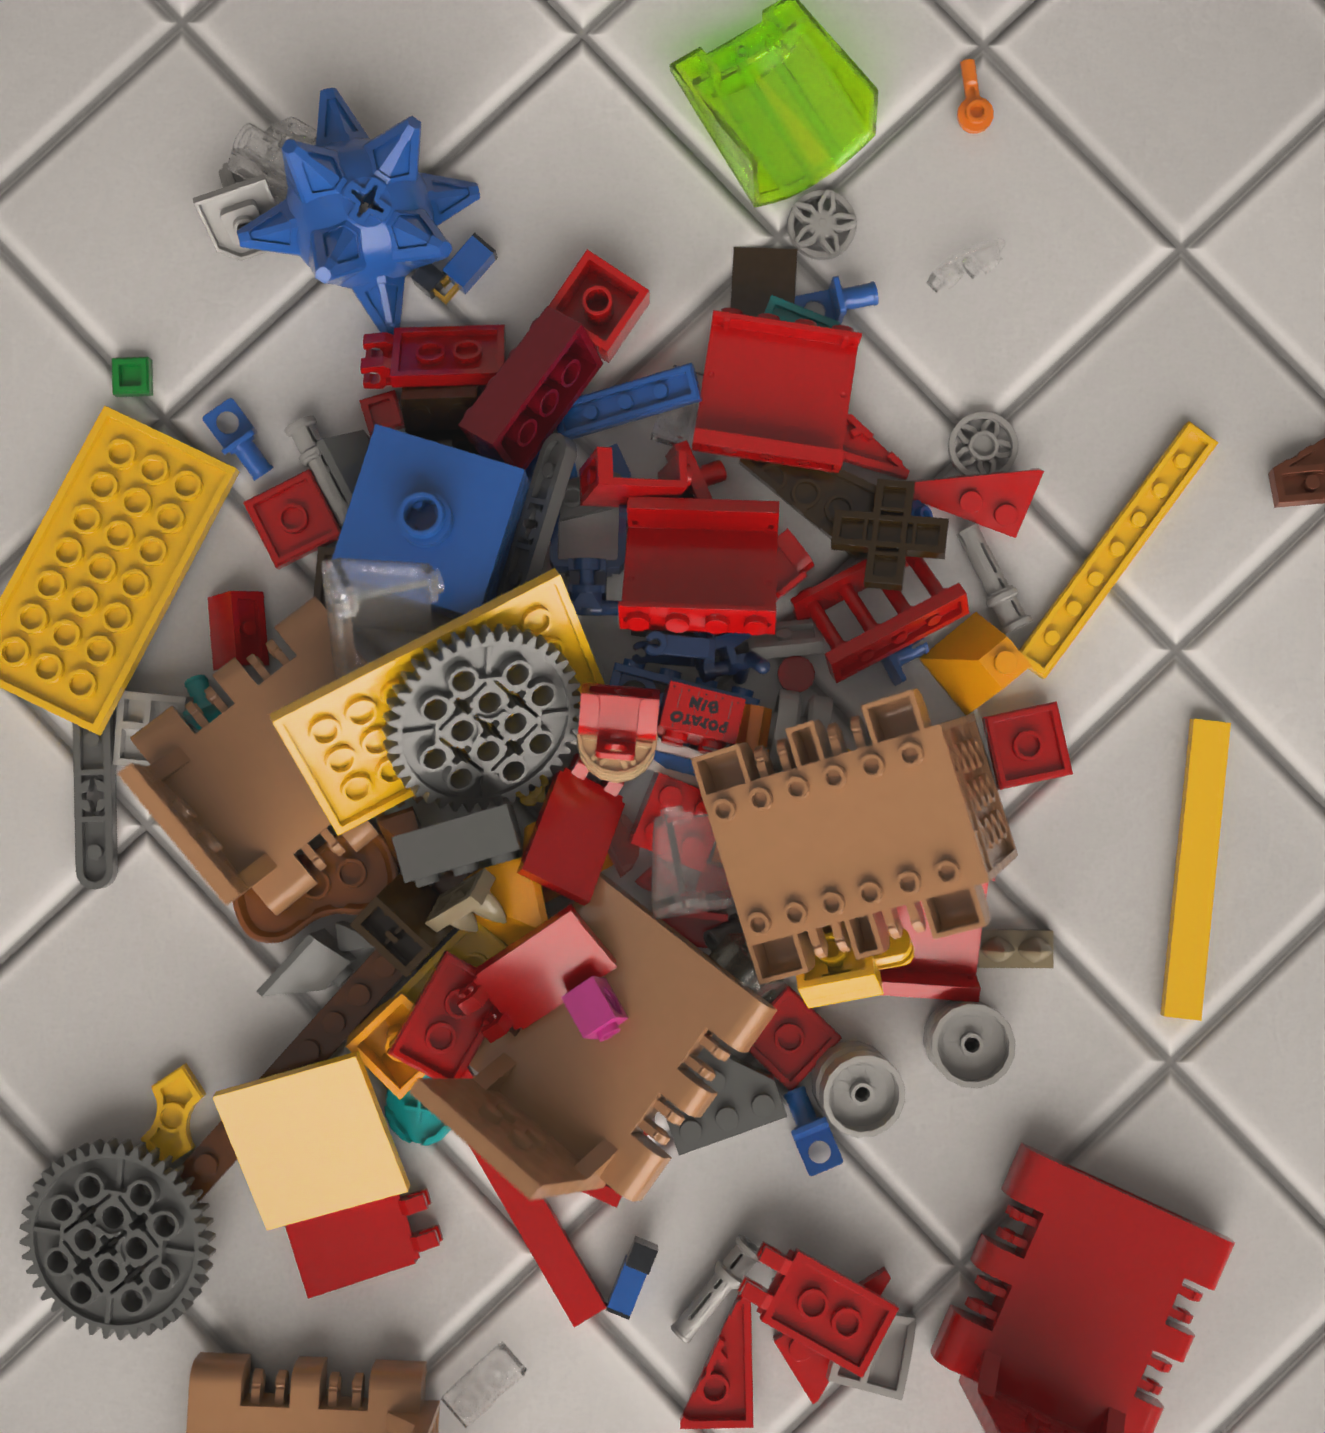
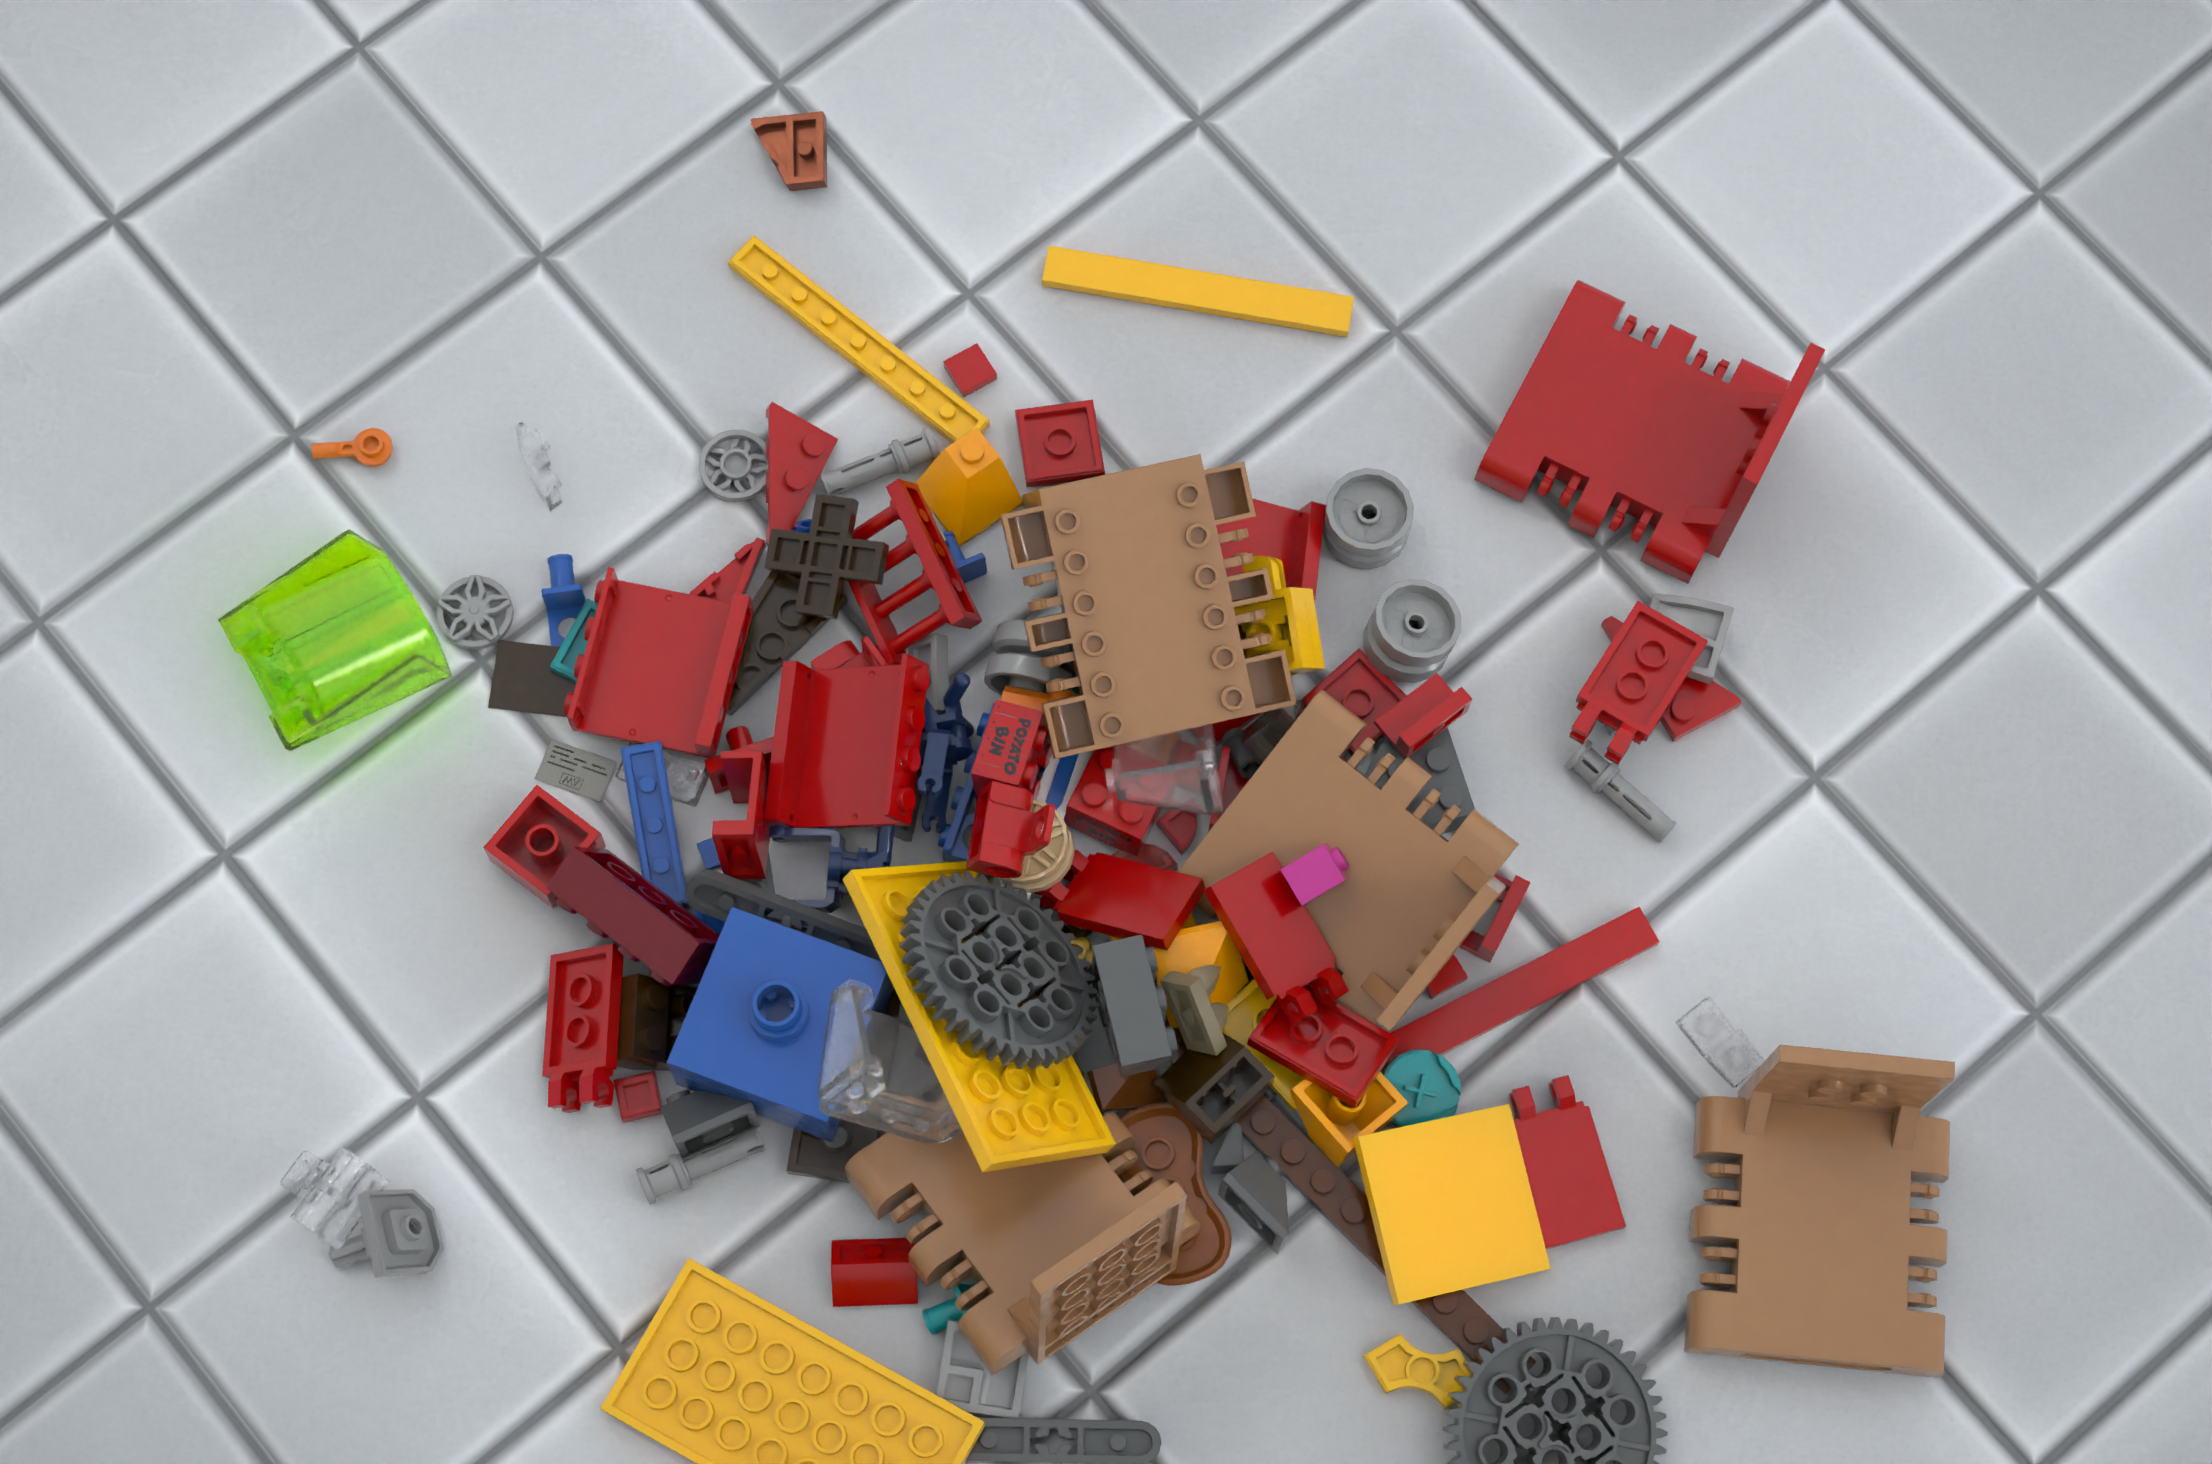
camera: 90 degrees left, 15 degrees down
(132, 377) = (567, 1381): green tile -> none
(240, 441) = (655, 1255): blue bracket -> none
(293, 519) = (751, 1199): red plate -> none
(323, 202) = (408, 1091): blue piece -> none
(462, 270) = (486, 1000): piece -> none
(631, 1277) = (1606, 877): piece -> none
(679, 330) = (575, 770): none -> clear smoke sticker
(726, 1382) = (1718, 787): red wing -> none
(766, 1103) = (1422, 715): none -> red panel
(796, 674) = (970, 663): red tile -> none
(810, 1130) = (1459, 676): blue bracket -> none
(1016, 948) = (1273, 468): dark tan tile -> none
(1096, 656) = (970, 370): none -> red tile

